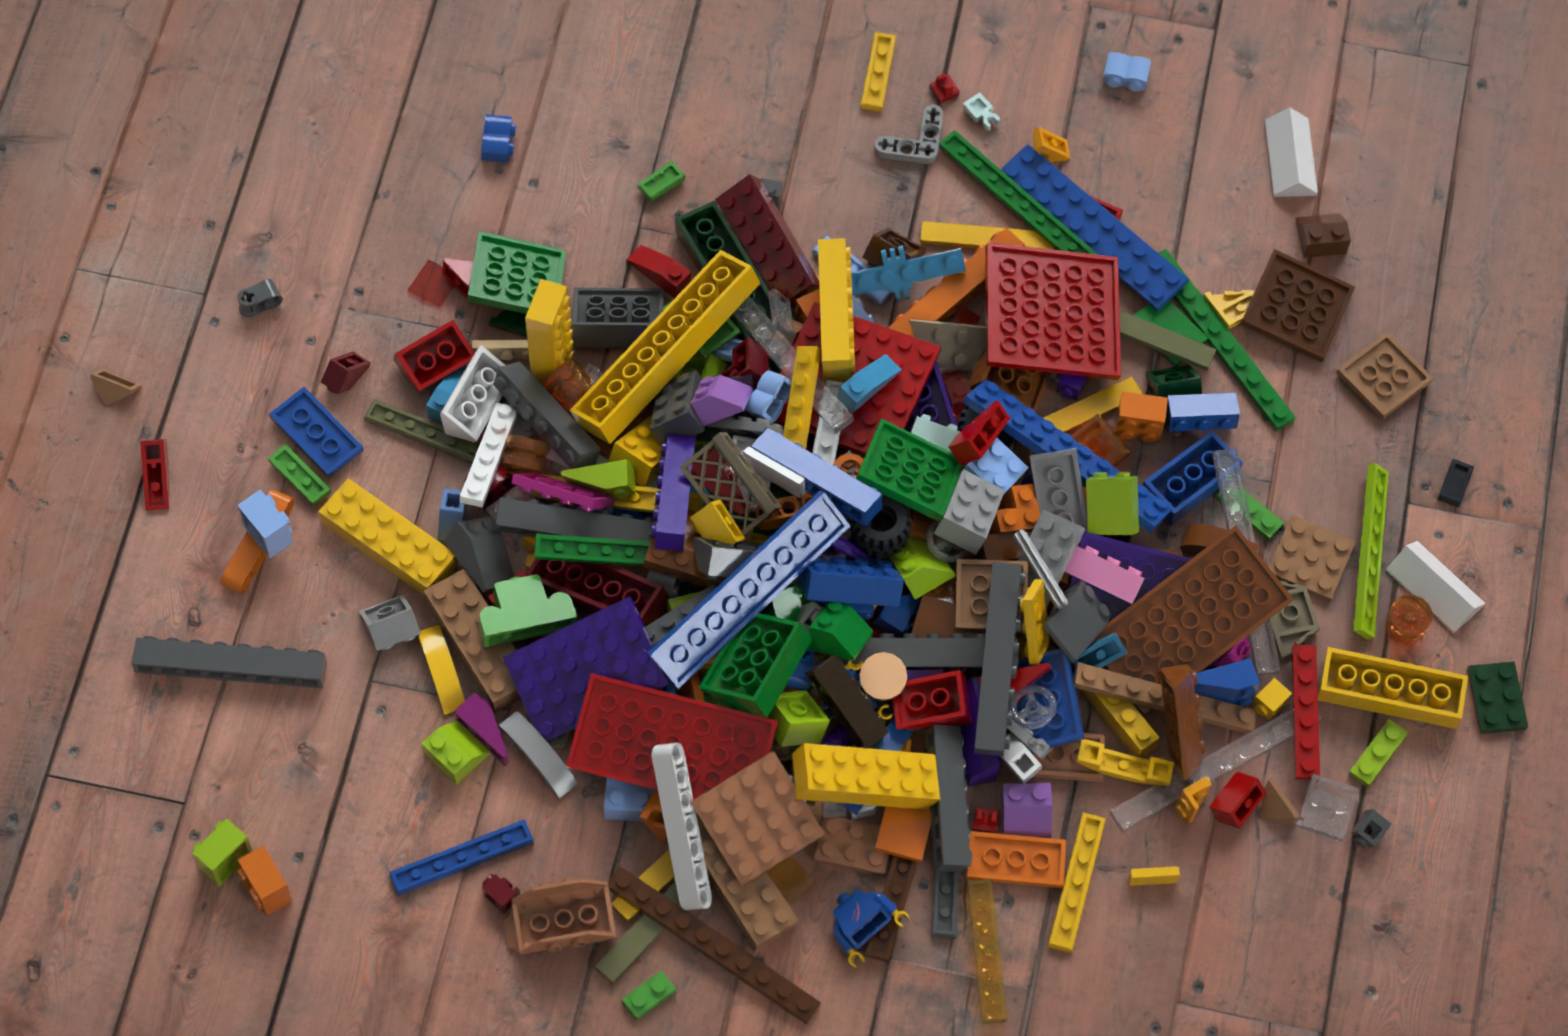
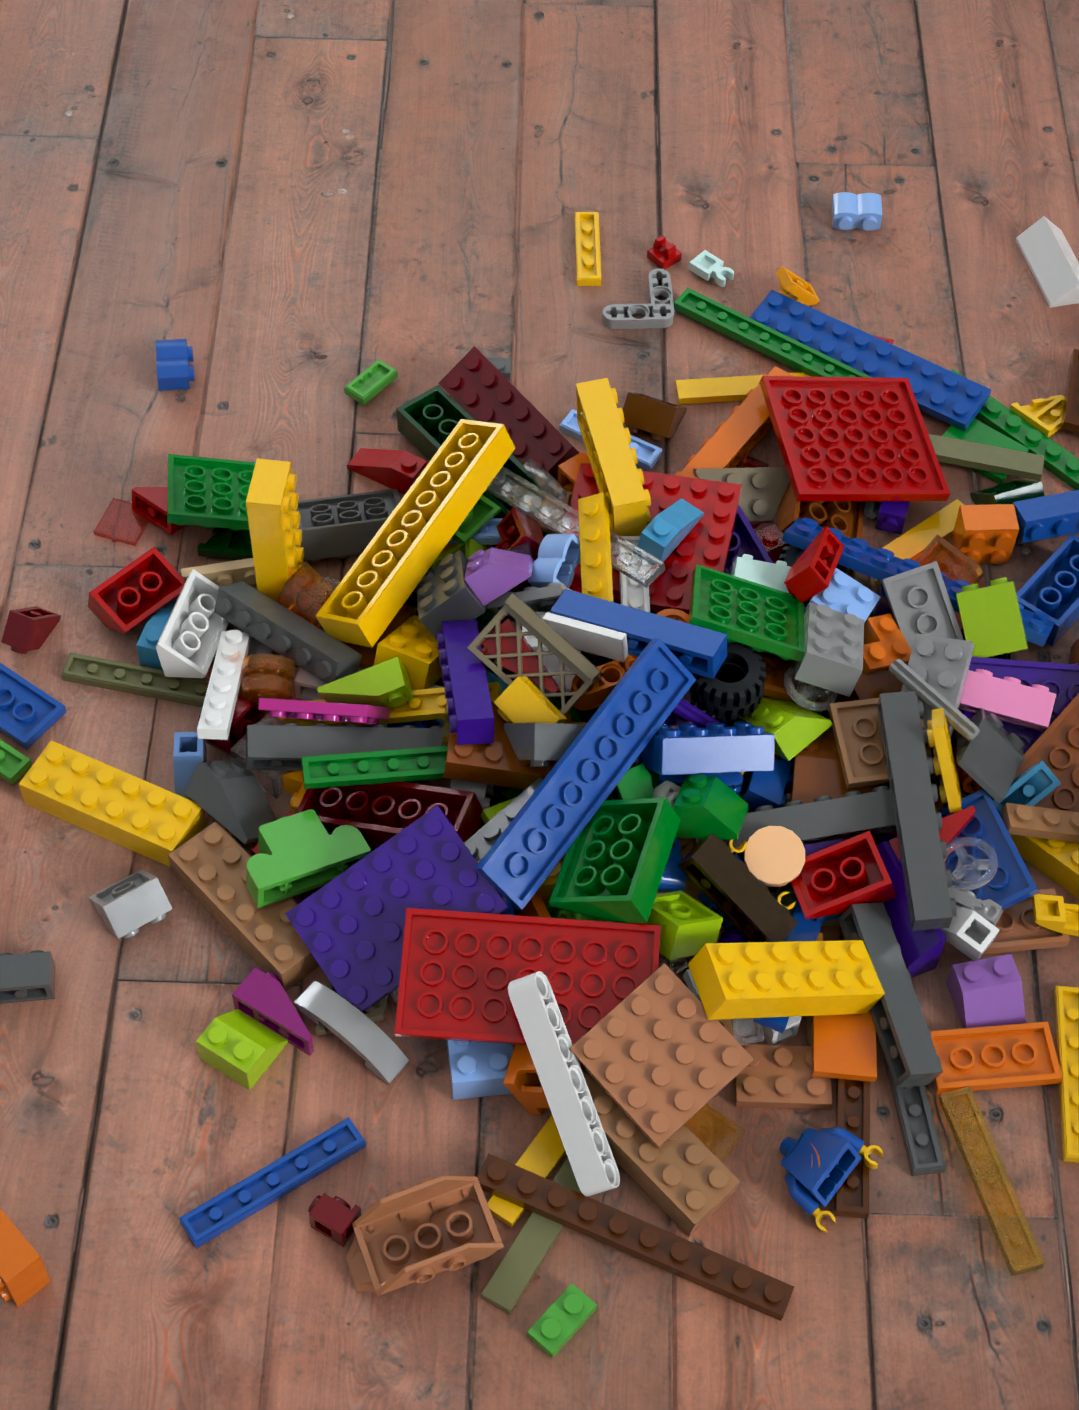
camera: 10 degrees left, 10 degrees down
(441, 669) = (207, 949): yellow slope -> none
(900, 273) = (667, 428): dark azure hinge -> none
(985, 820) = (939, 1014): red tile -> none

